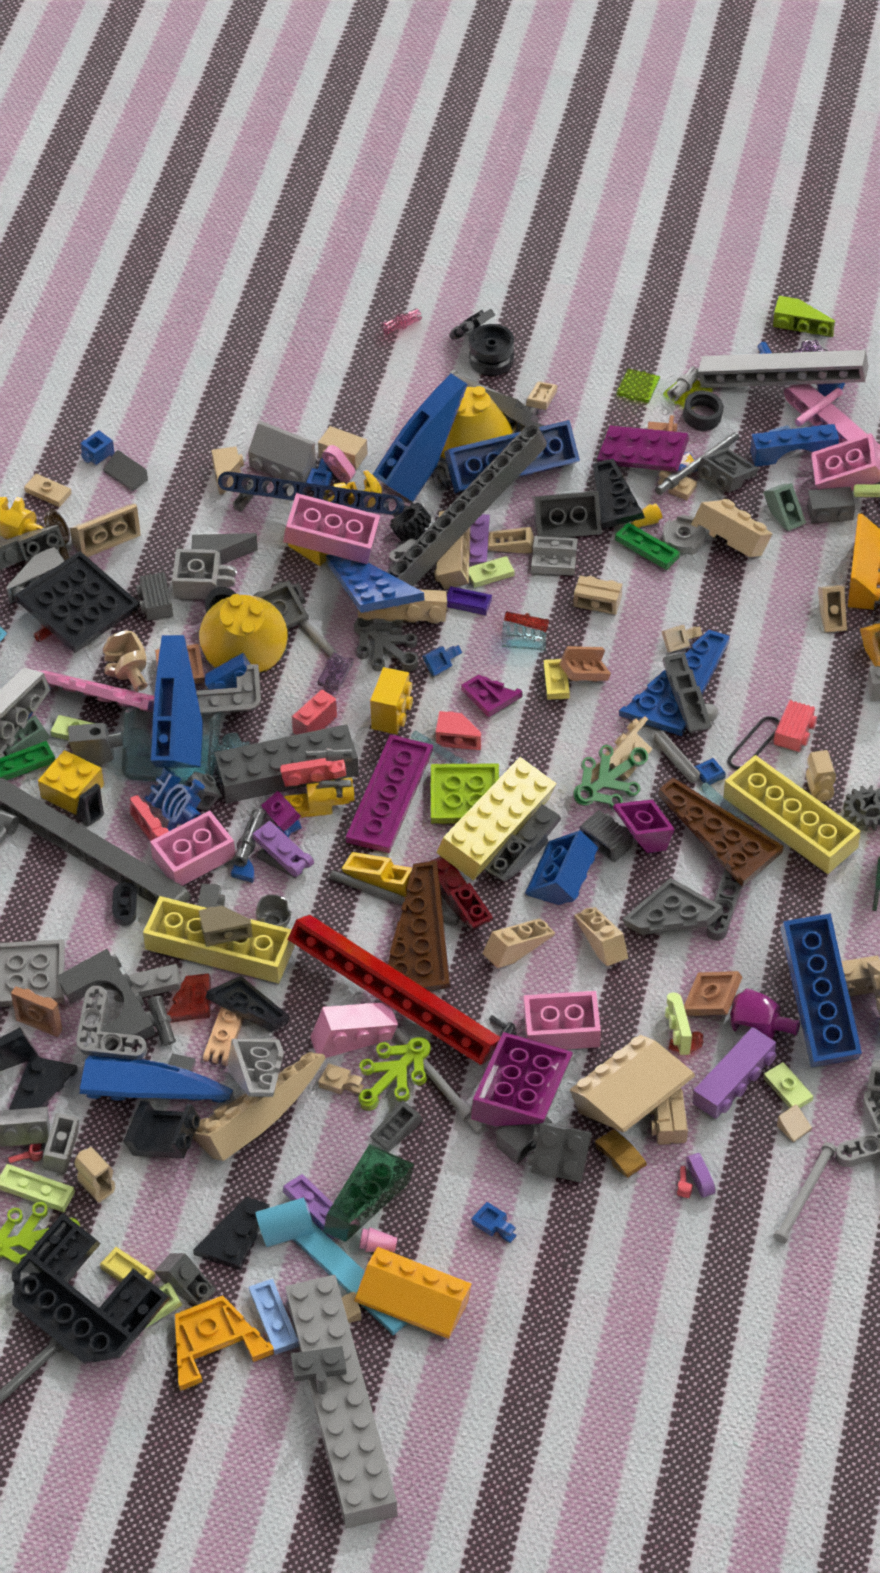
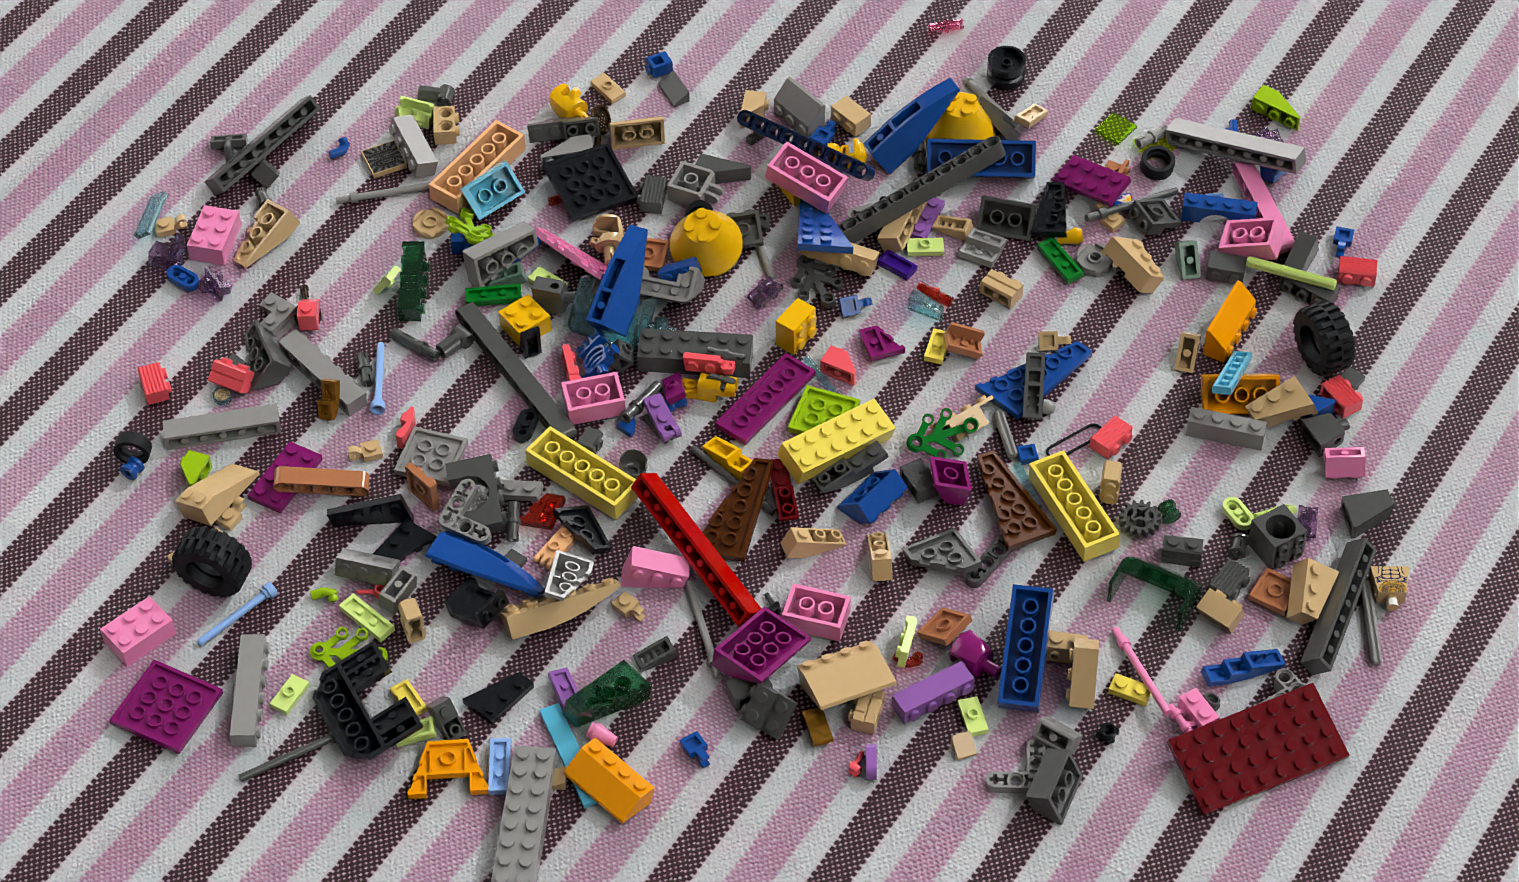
camera: 20 degrees right, 0 degrees up
(223, 925) = (585, 462): dark tan slope -> none
(285, 1222) = (537, 698): medium azure brick -> none
(315, 713) = (734, 320): coral brick -> none
(319, 1365) = (511, 810): dark grey plate -> none
(338, 463) = (841, 127): bright pink beam -> none
(394, 1070) = (672, 611): lime plant -> none
(410, 522) = (877, 189): black tyre -> none
(471, 323) = (1005, 39): black plate -> none
(818, 407) = (1250, 185): bright pink bar -> none
(828, 1150) = (914, 826): light grey bar -> none

